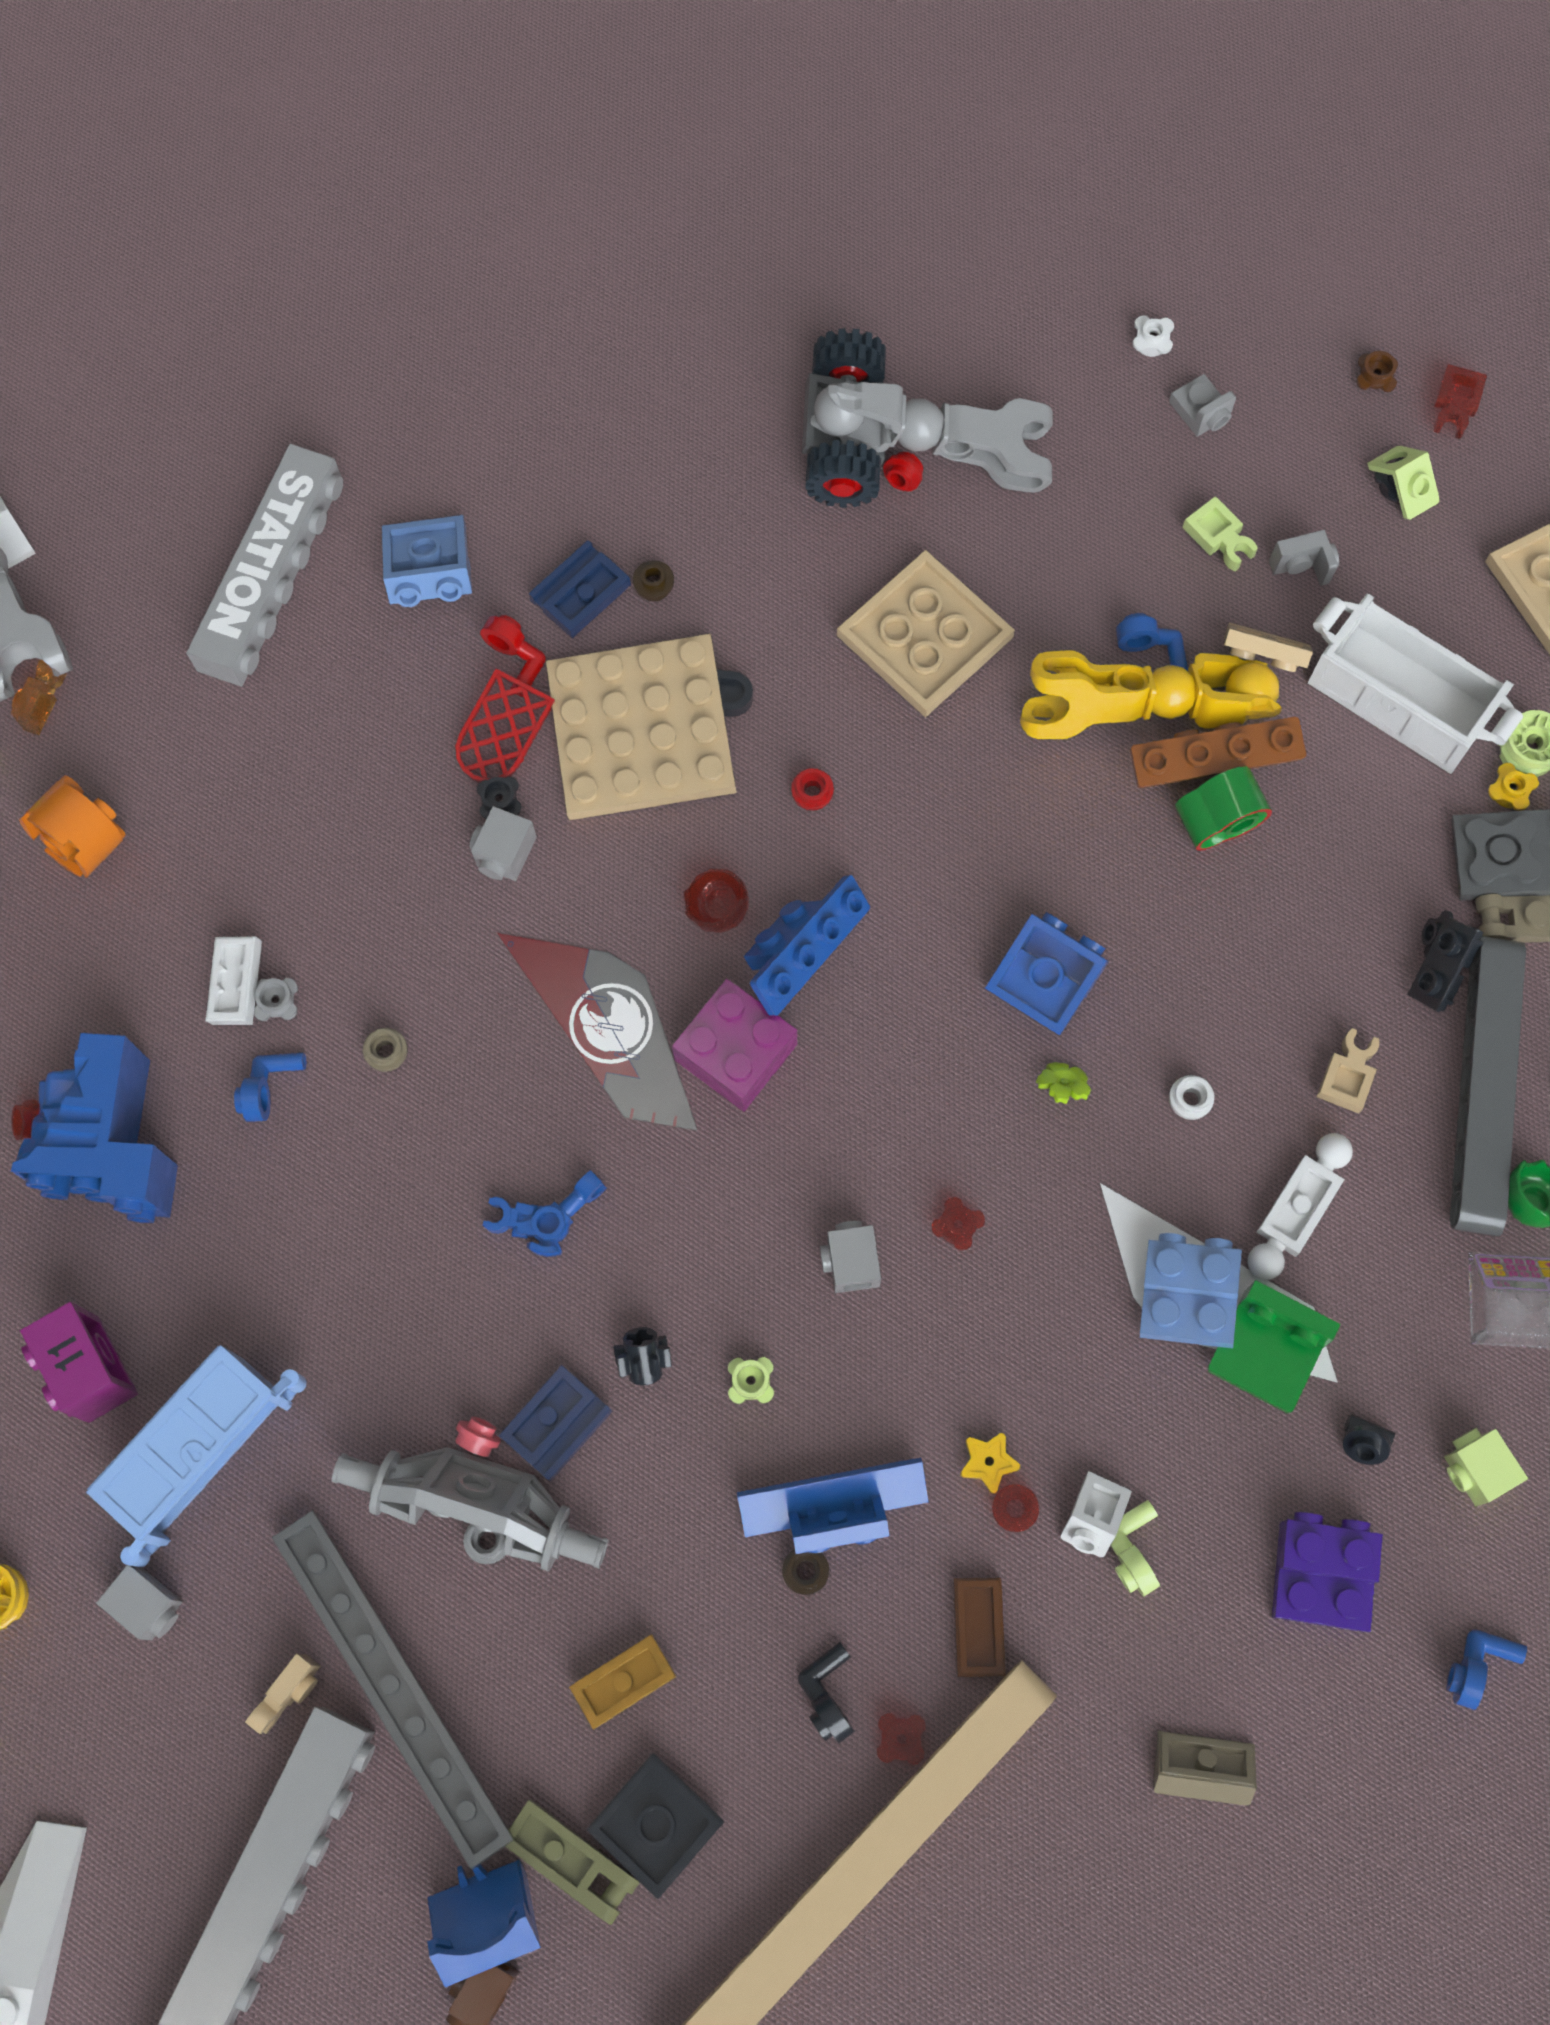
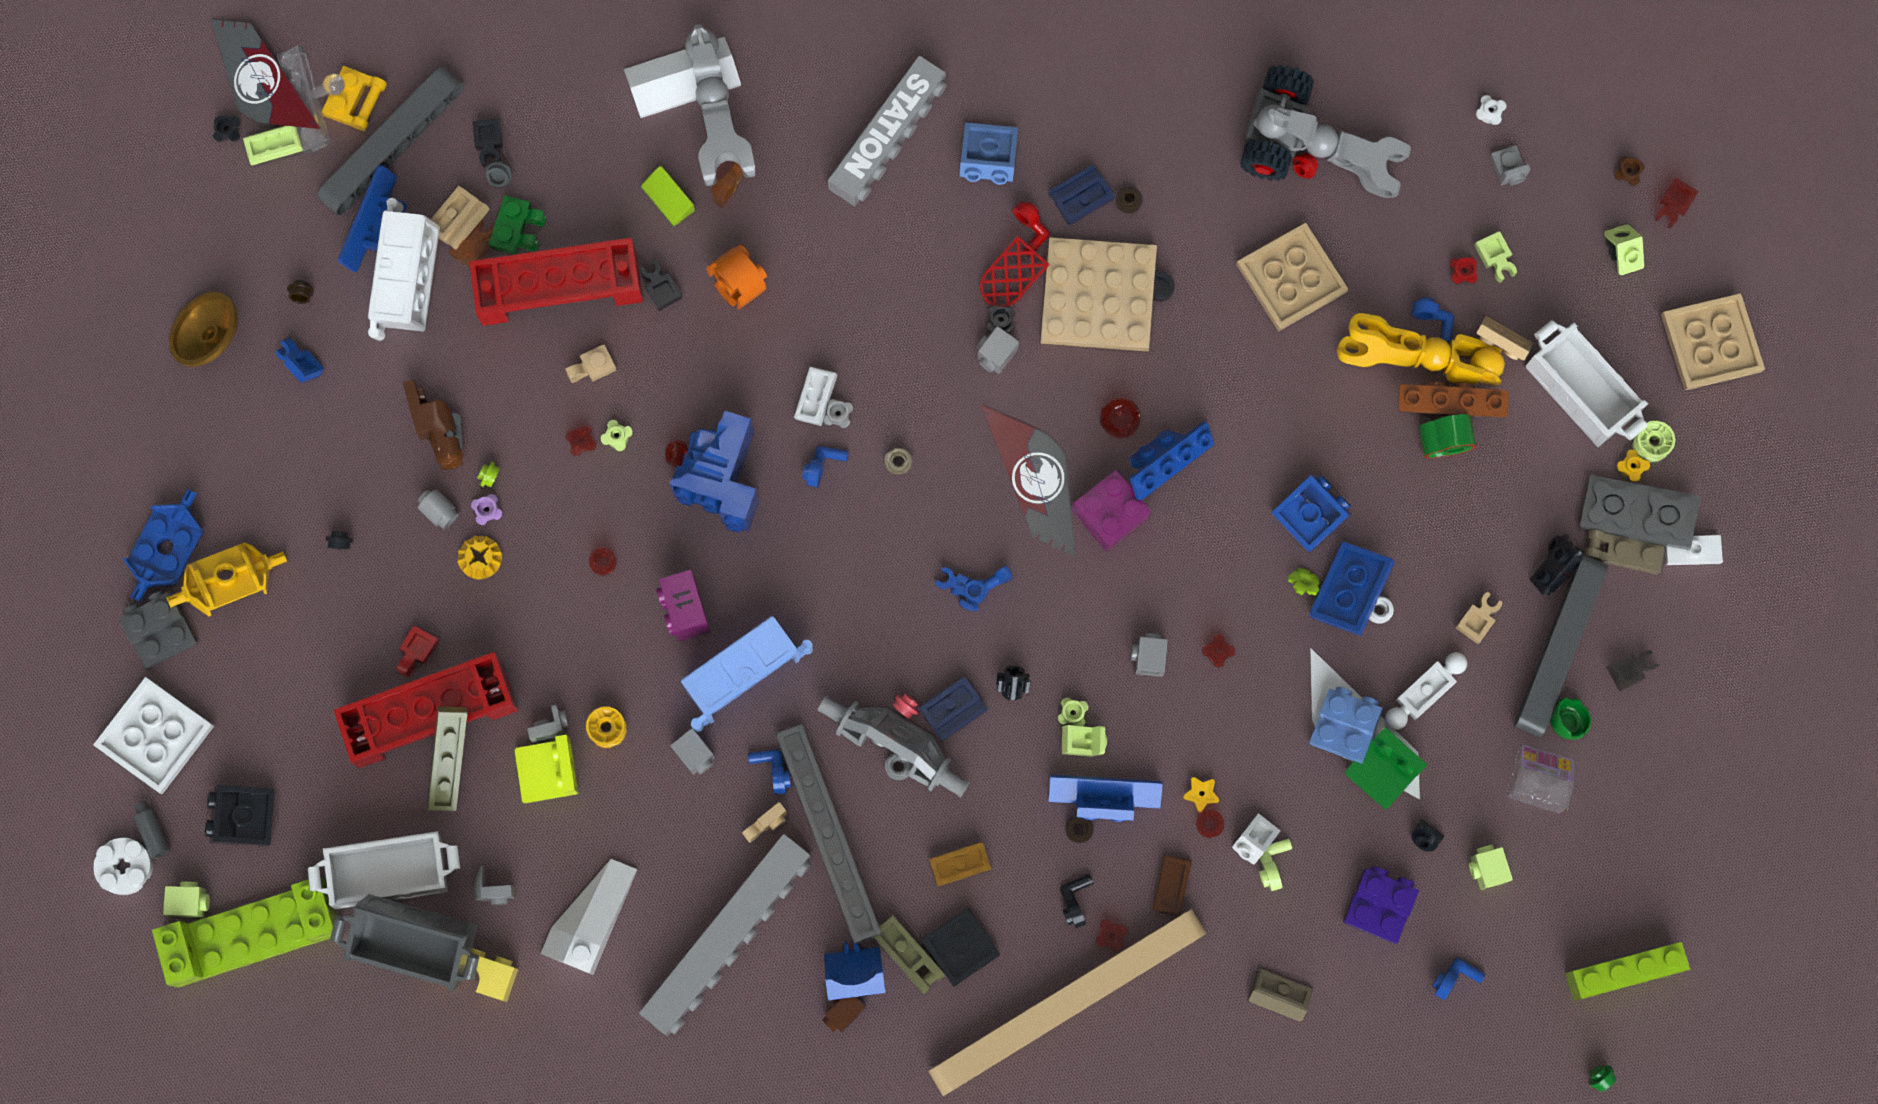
camera: 10 degrees right, 5 degrees up
(293, 1610) = (780, 778): none -> blue plate
(778, 1422) = (1083, 740): none -> yellowish green bracket
(815, 778) = (1198, 353): red plate -> none
(1141, 1074) = (1351, 588): none -> blue plate
(1181, 555) = (1464, 263): none -> red plate
(1304, 551) = (1543, 282): light grey bracket -> none

